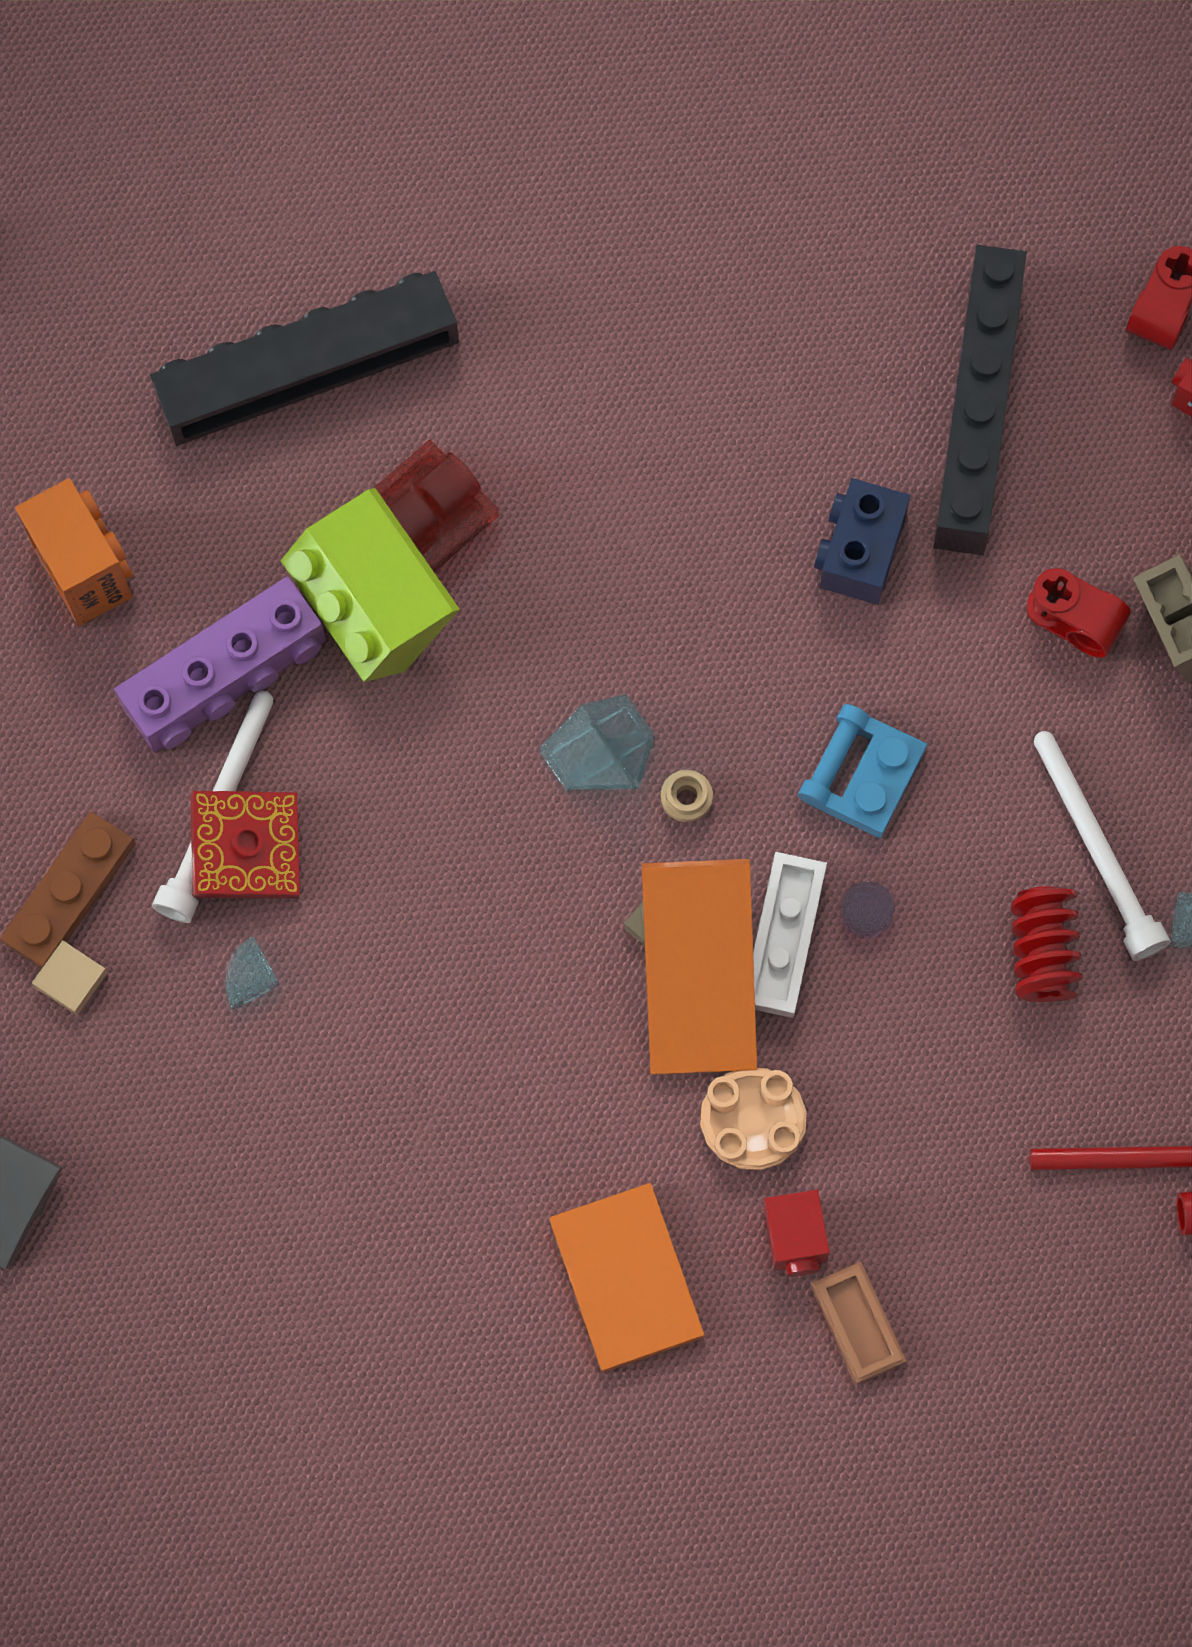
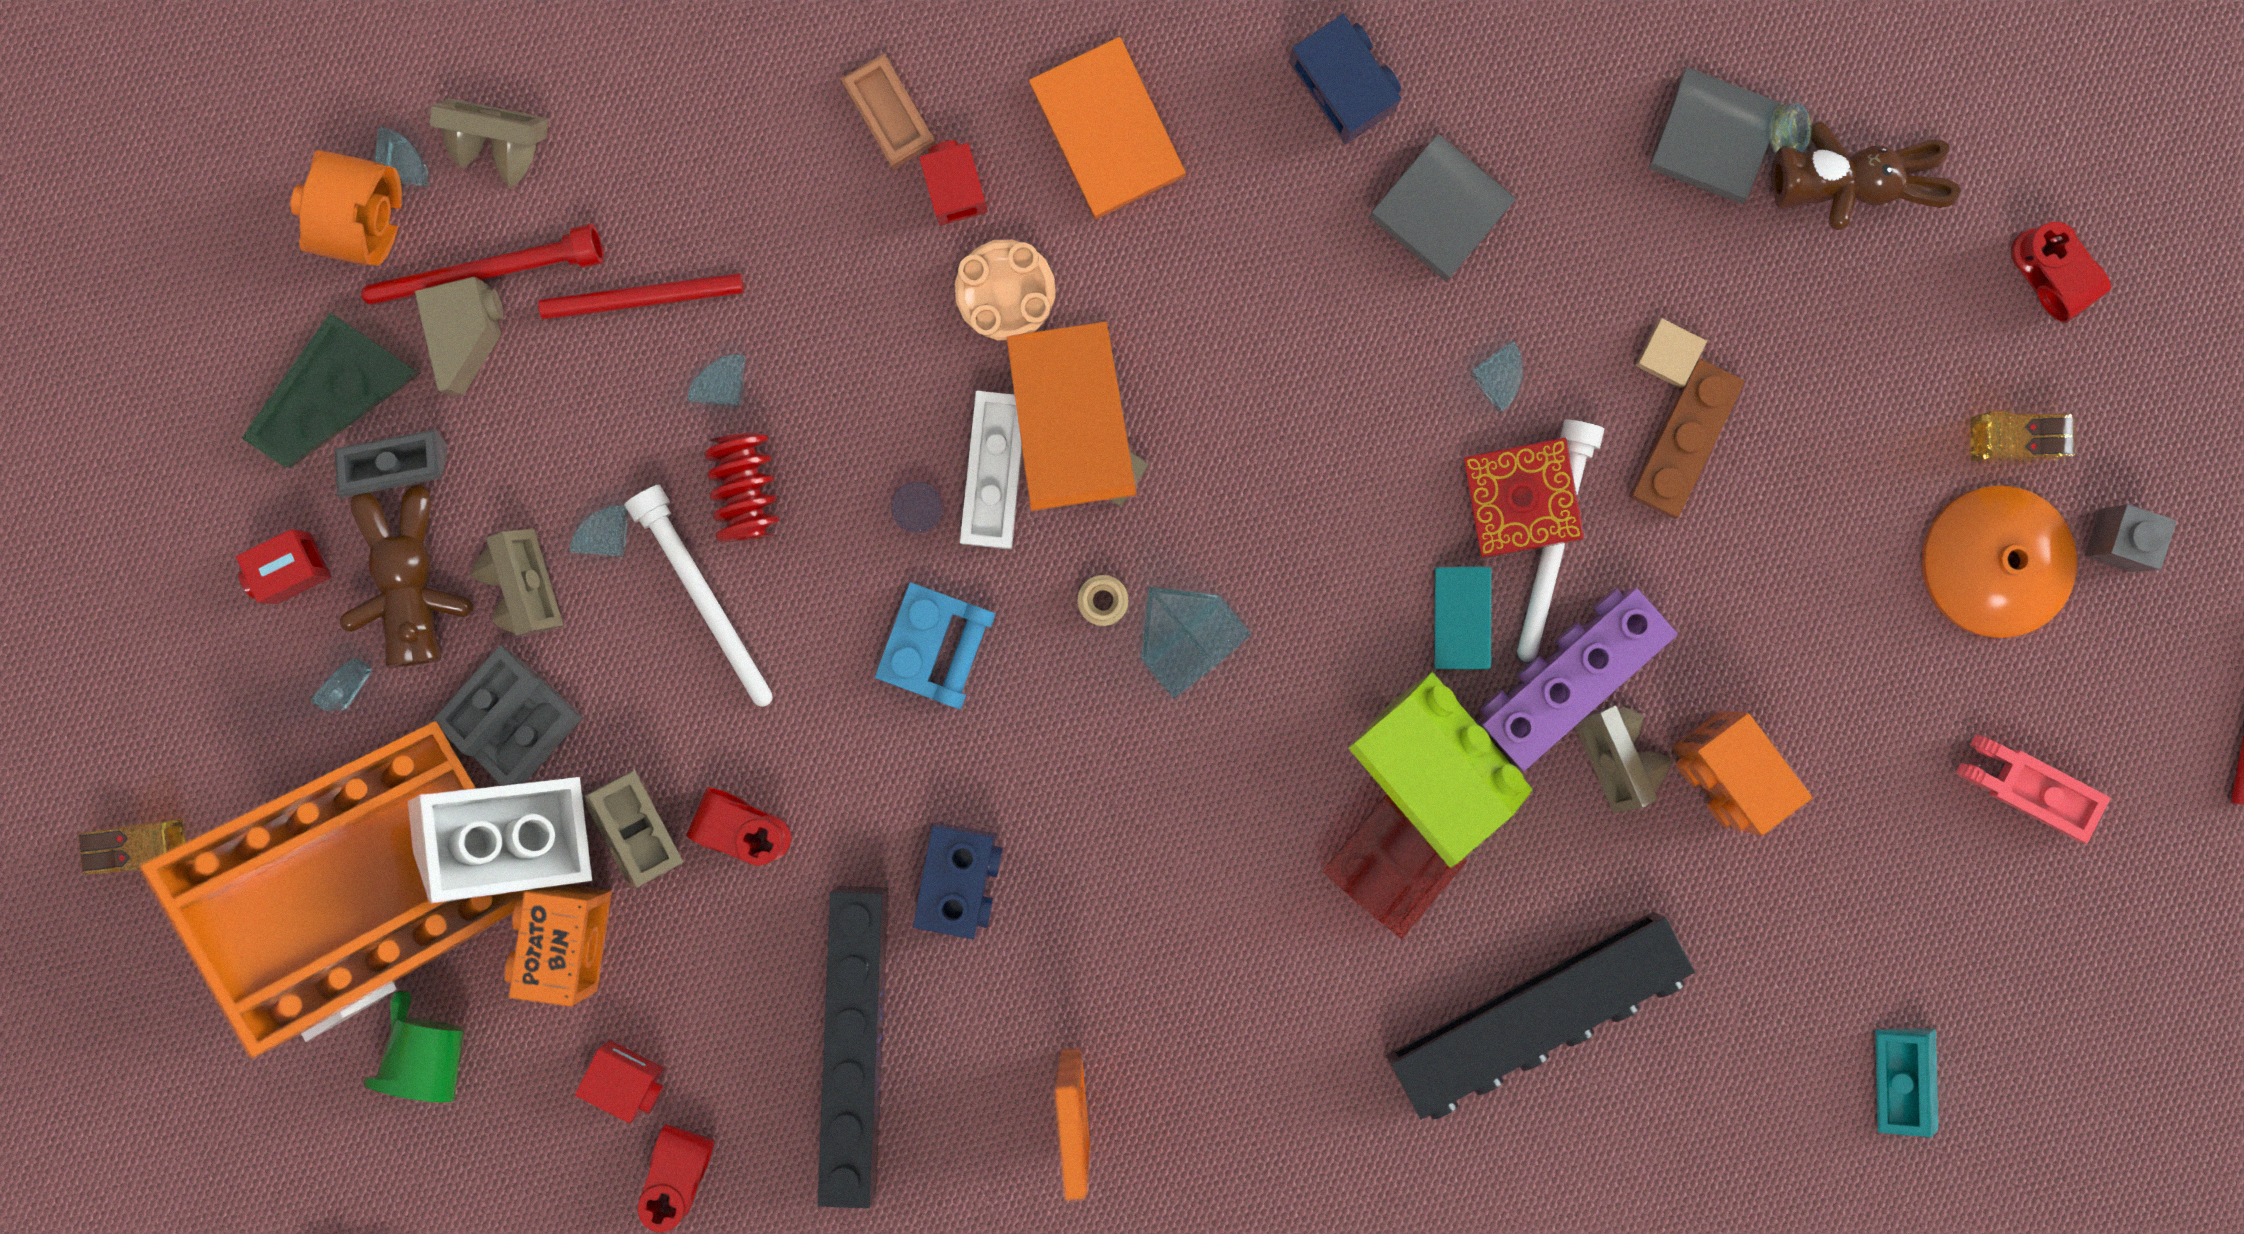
camera: 170 degrees right, 15 degrees up
(185, 569) = (1625, 775): none -> dark tan tile
(284, 1150) = (1442, 207): none -> dark grey slope
(323, 738) = (1462, 618): none -> teal slope
(368, 1290) = (1346, 78): none -> dark blue brick
(770, 290) = (1073, 1124): none -> orange tile
(1062, 1059) = (720, 382): none -> clear light blue tile

